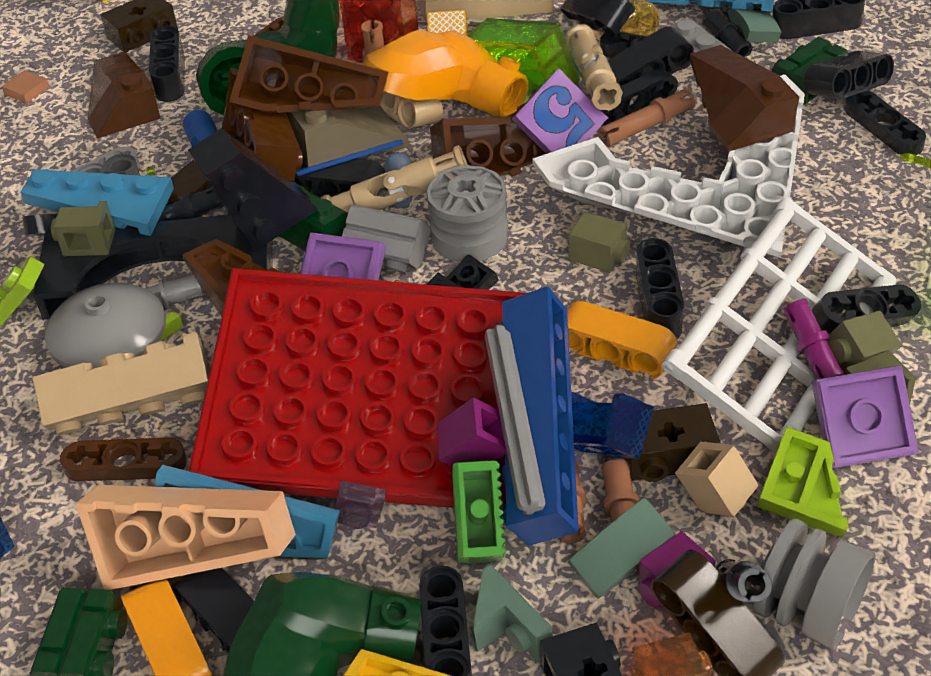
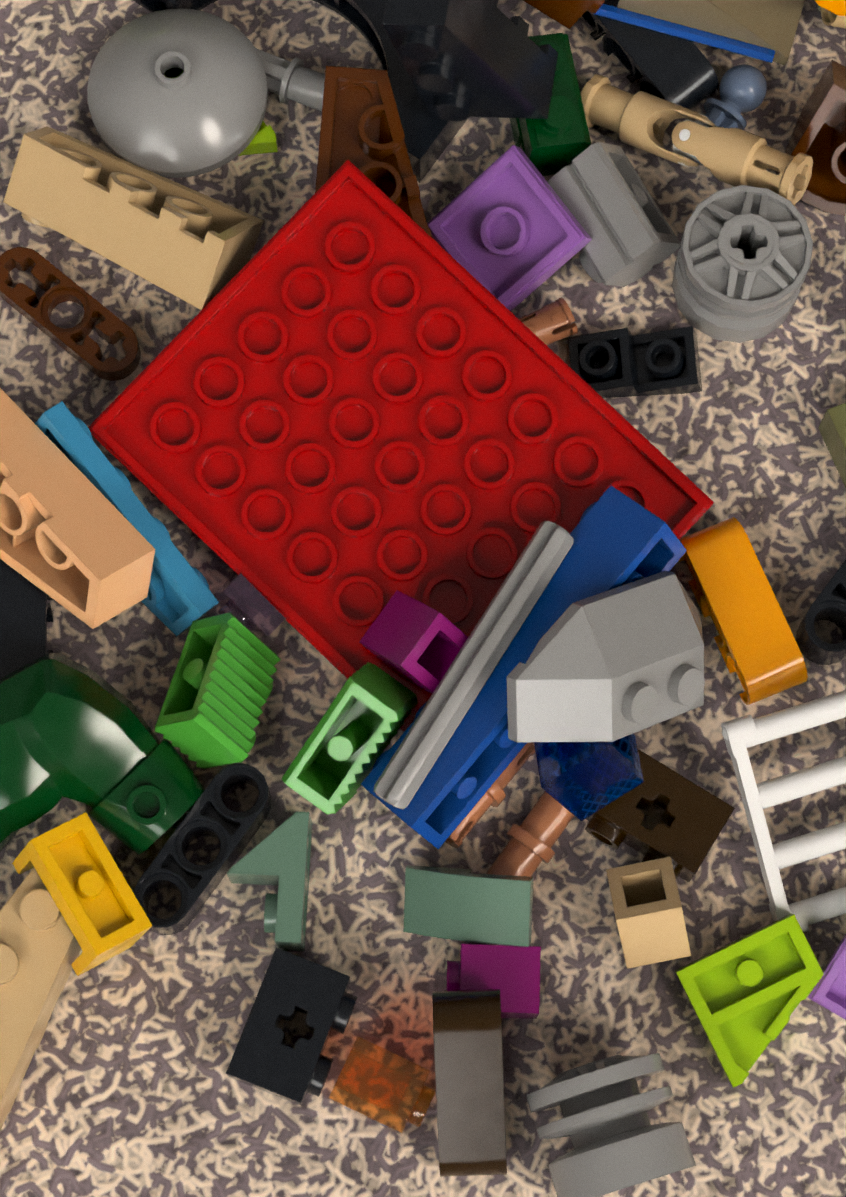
camera: 35 degrees right, 30 degrees up
(380, 547) = (217, 692): none -> bright green brick
(583, 367) = (611, 666): none -> light grey wedge
(746, 572) = (523, 1077): black pin -> none

